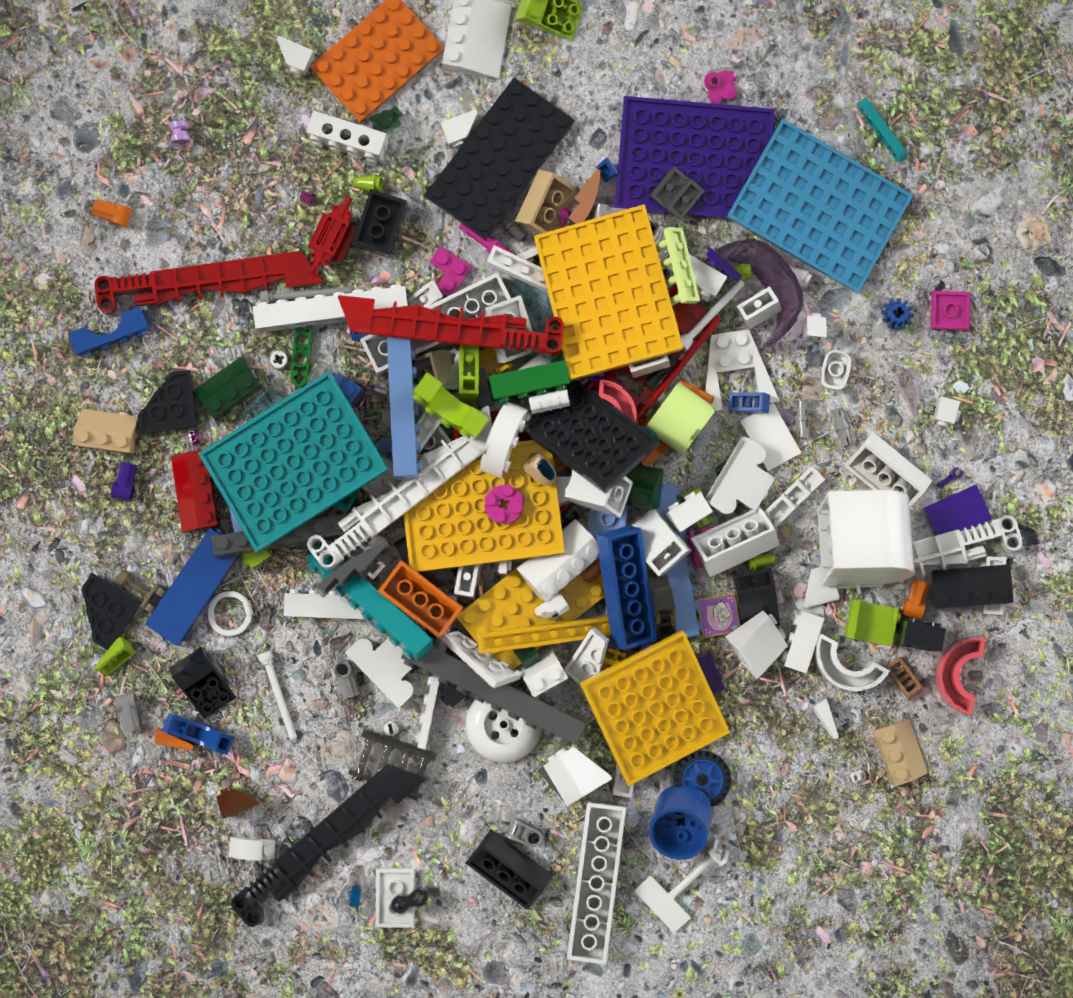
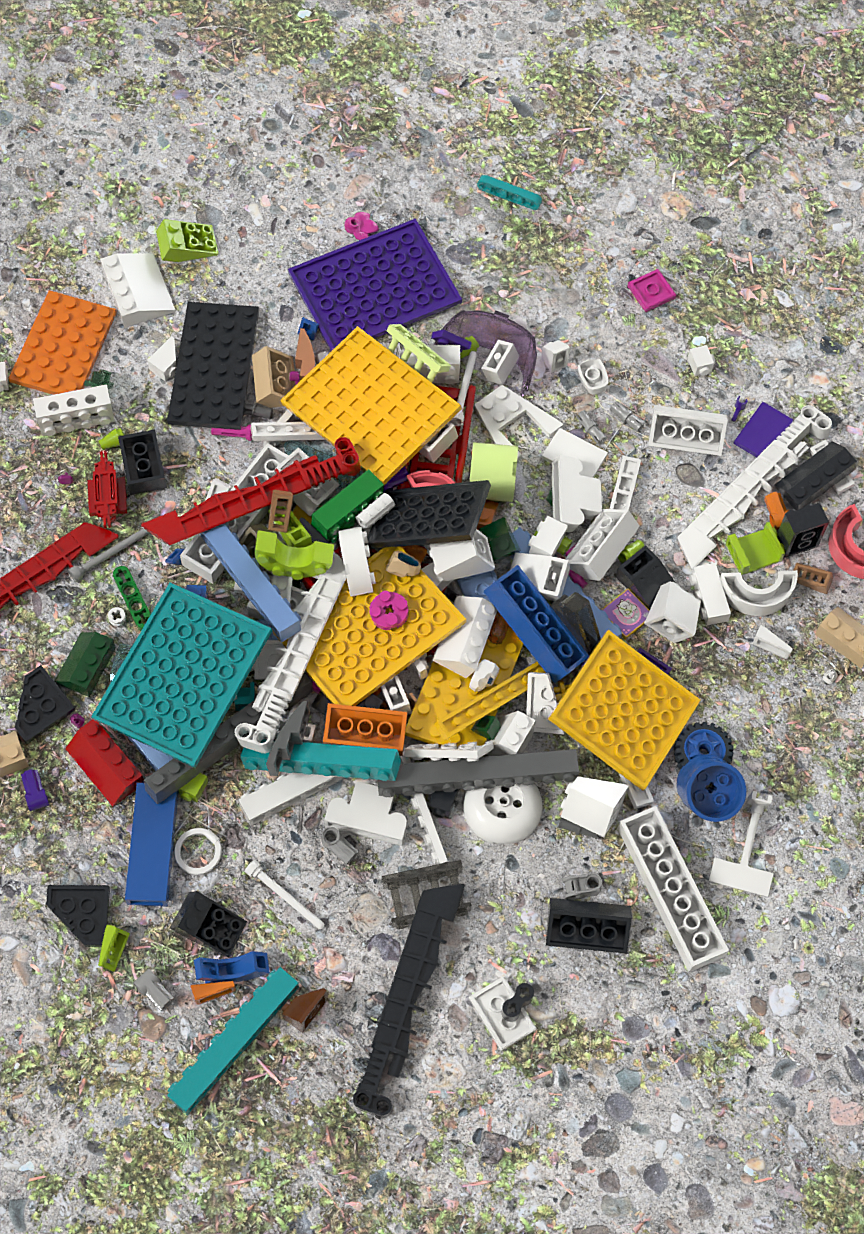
camera: 35 degrees left, 20 degrees down
(123, 578) = (119, 886): dark tan bar -> none
(167, 792) = (233, 1041): none -> teal brick
(252, 849) = (342, 1043): white brick -> none
(319, 309) = (121, 561): white brick -> none
(350, 898) = (461, 1037): clear rock -> none
(395, 727) = (400, 867): white hinge -> none
(454, 270) = (225, 466): dark pink plate -> none
(469, 345) = (274, 502): none -> medium nougat slope
(658, 375) = (451, 453): black pin -> none
(676, 193) = (376, 314): dark grey slope -> none
(761, 402) = (549, 437): blue slope -> none
(819, 206) = (498, 266): dark azure plate -> none
(865, 538) = (704, 477): white brick -> none
(891, 308) = (612, 312): blue gear -> none

